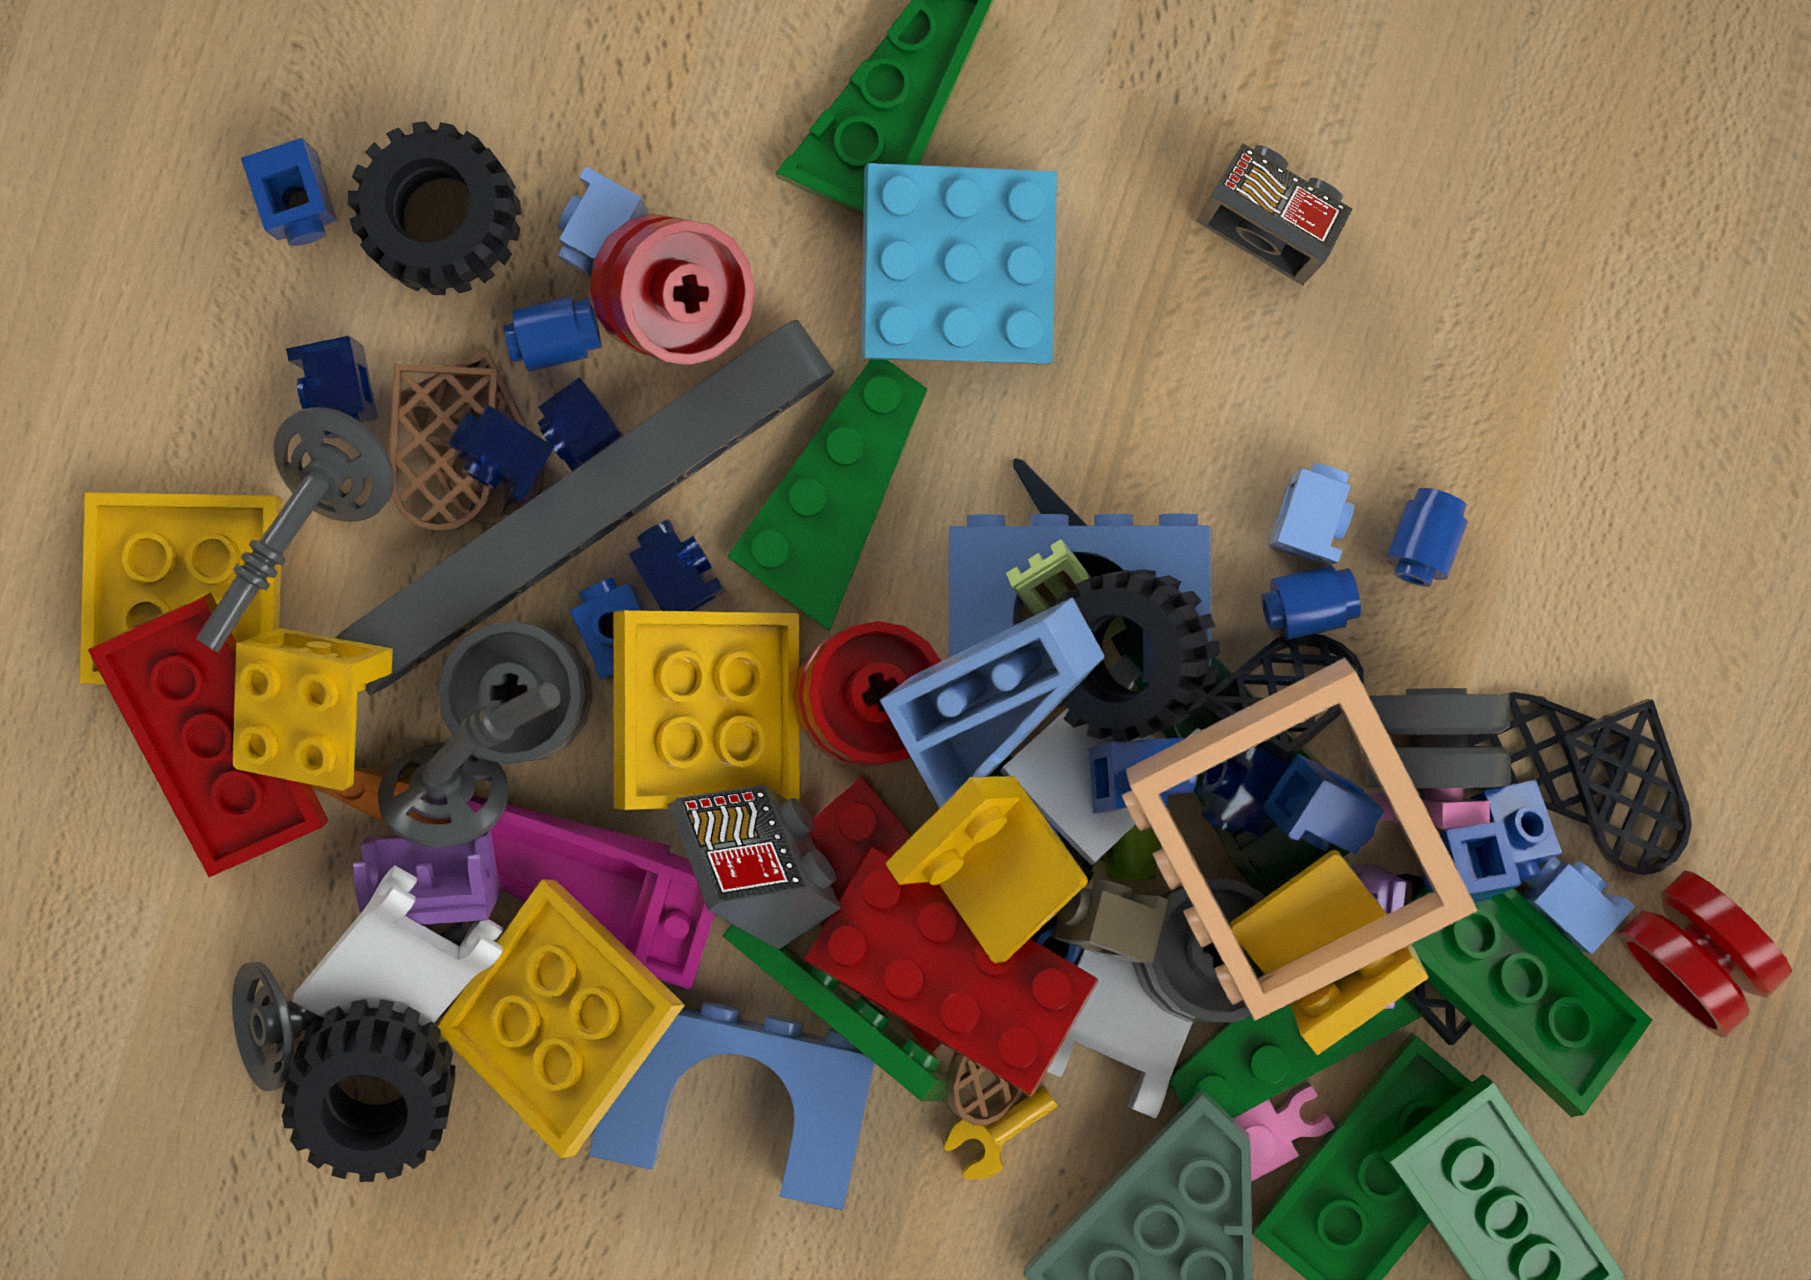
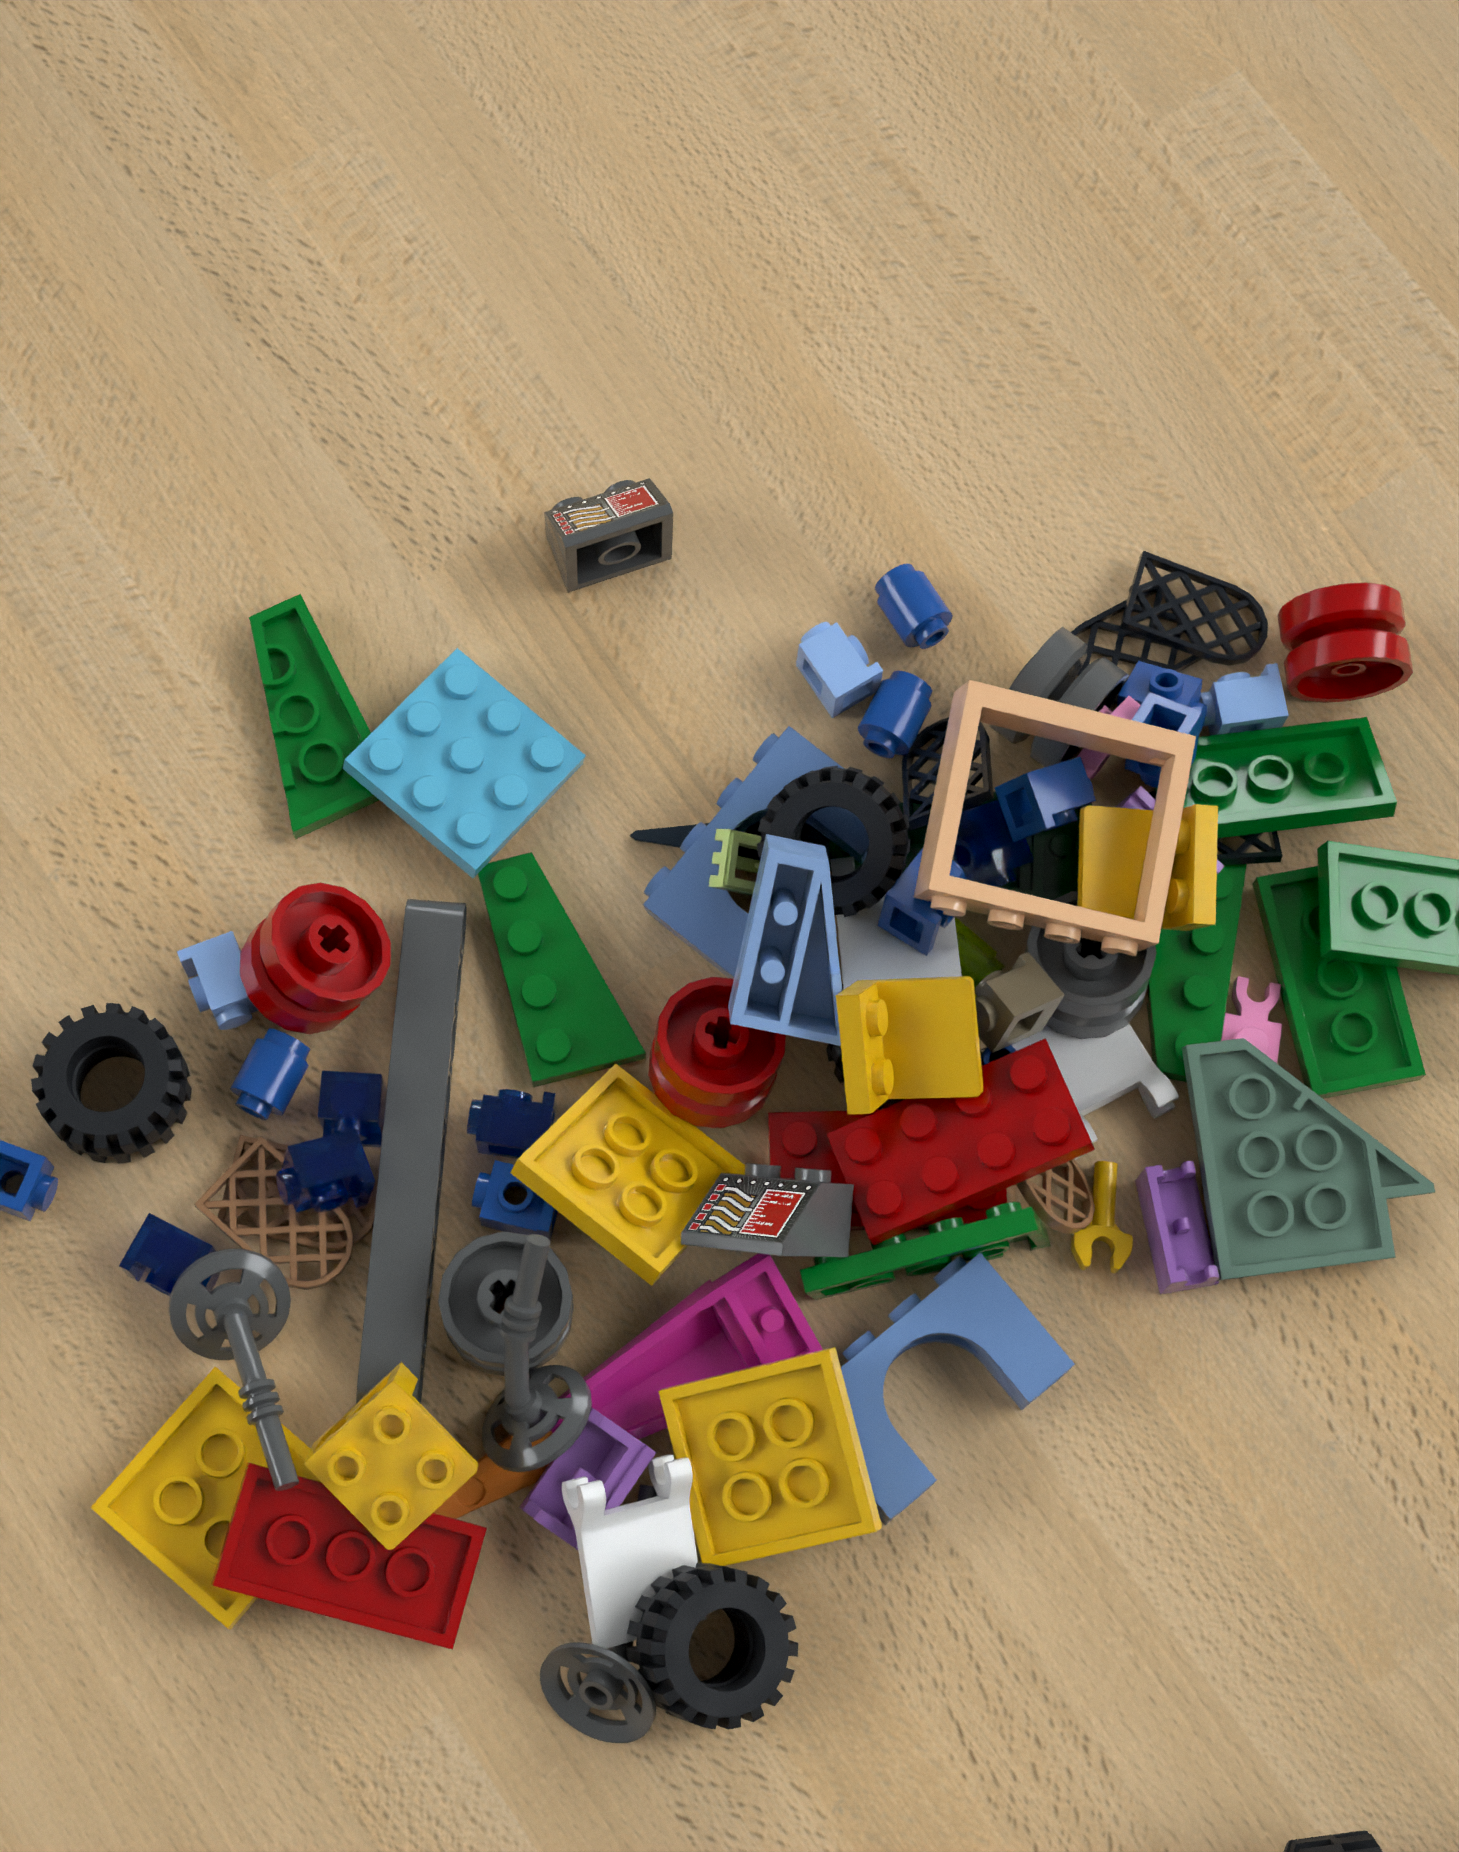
camera: 55 degrees left, 15 degrees down
(1039, 1201) = (1176, 1228): none -> medium lavender hinge

